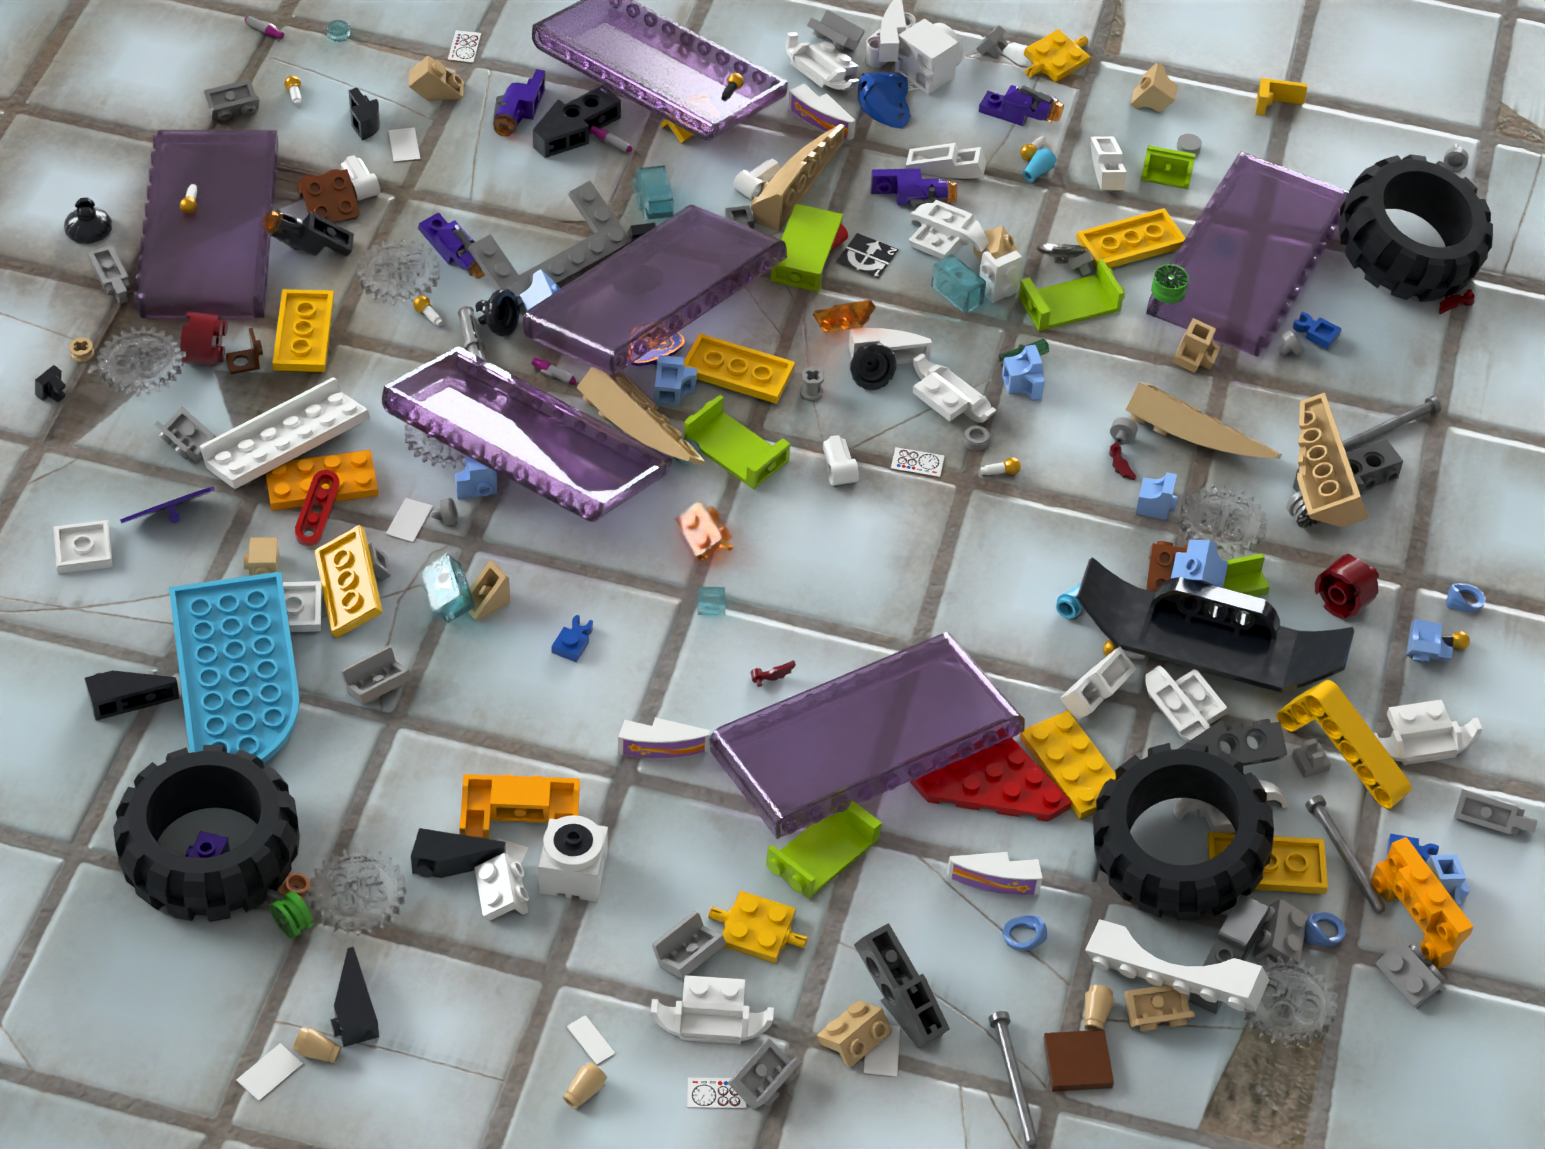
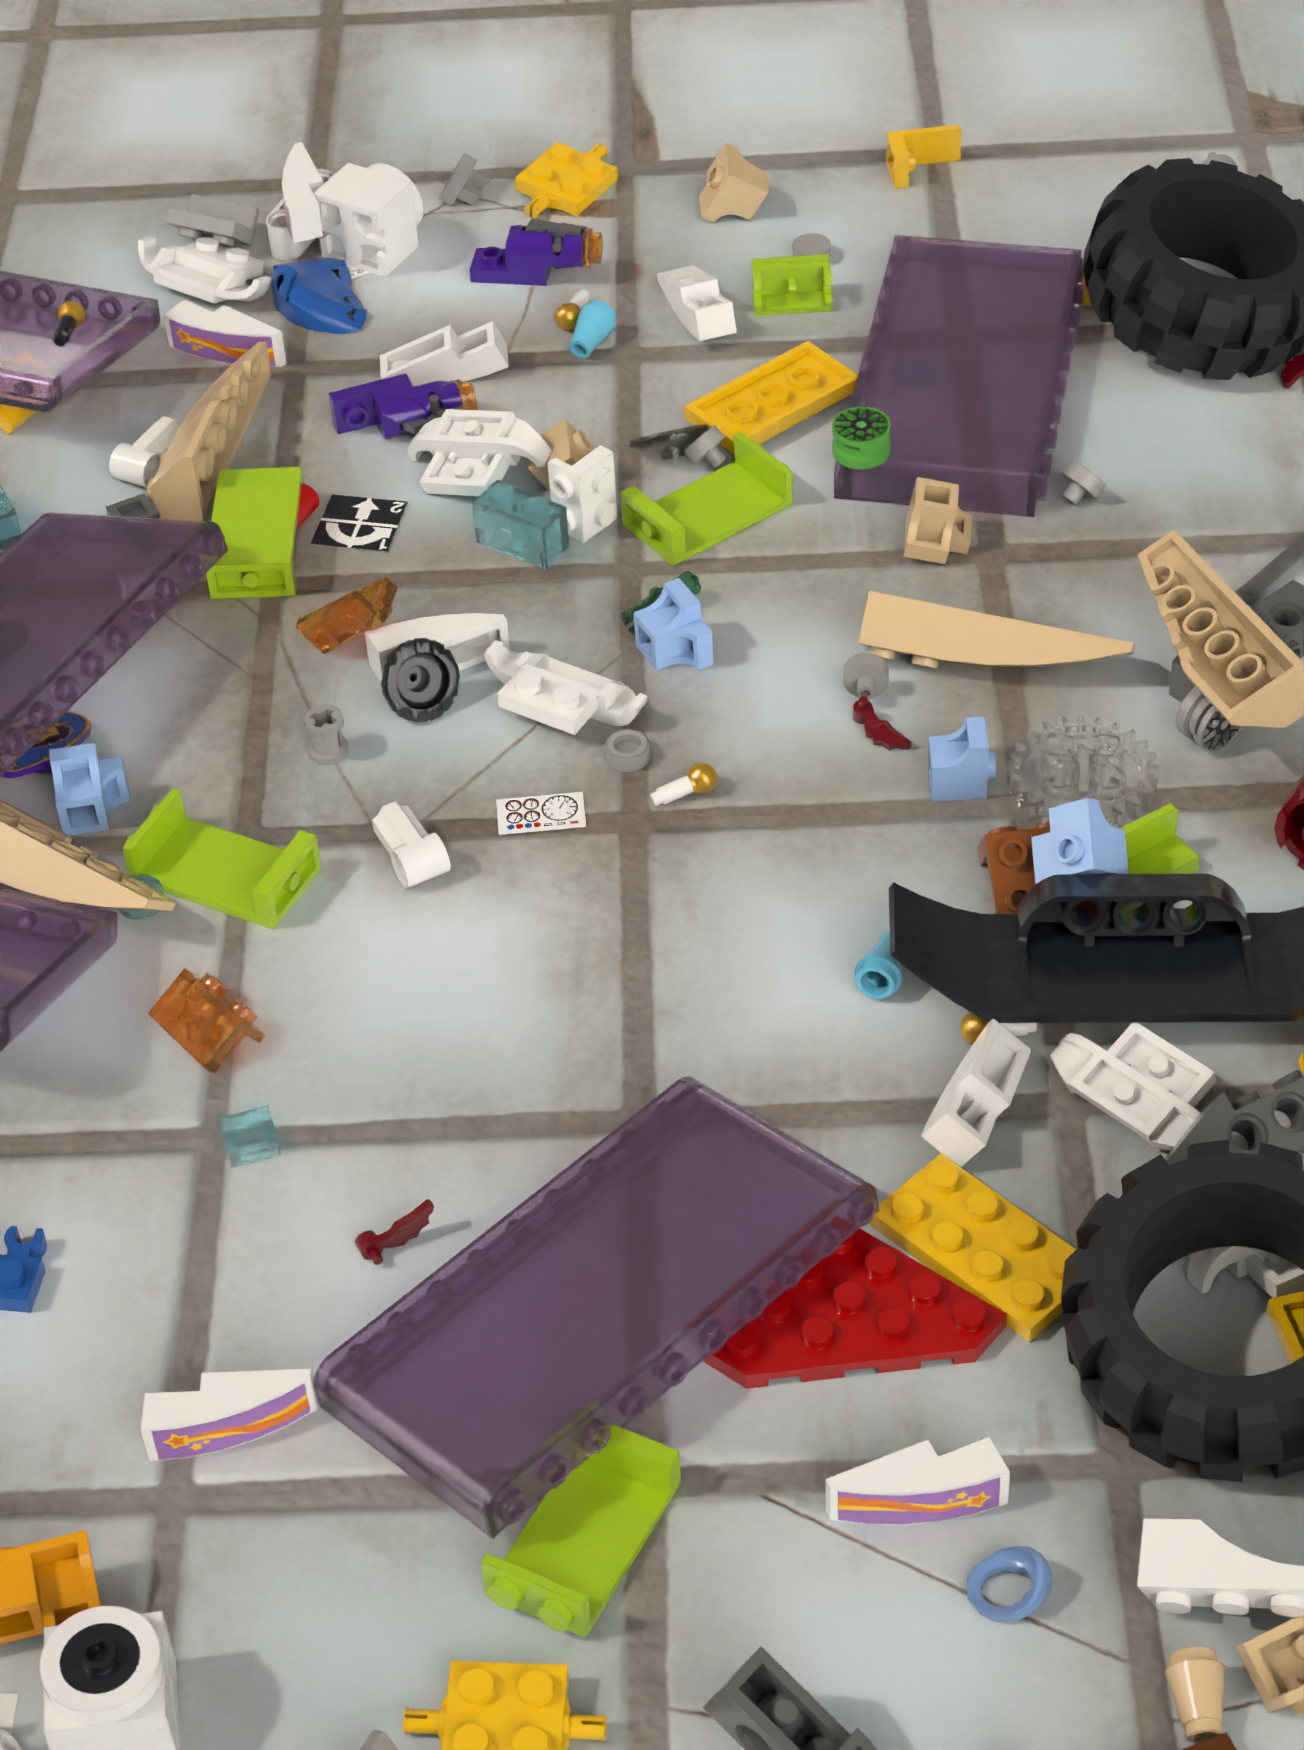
camera: 10 degrees left, 5 degrees down
(739, 368) = (196, 741): yellow plate -> none
(1319, 331) = (1116, 455): blue plate -> none

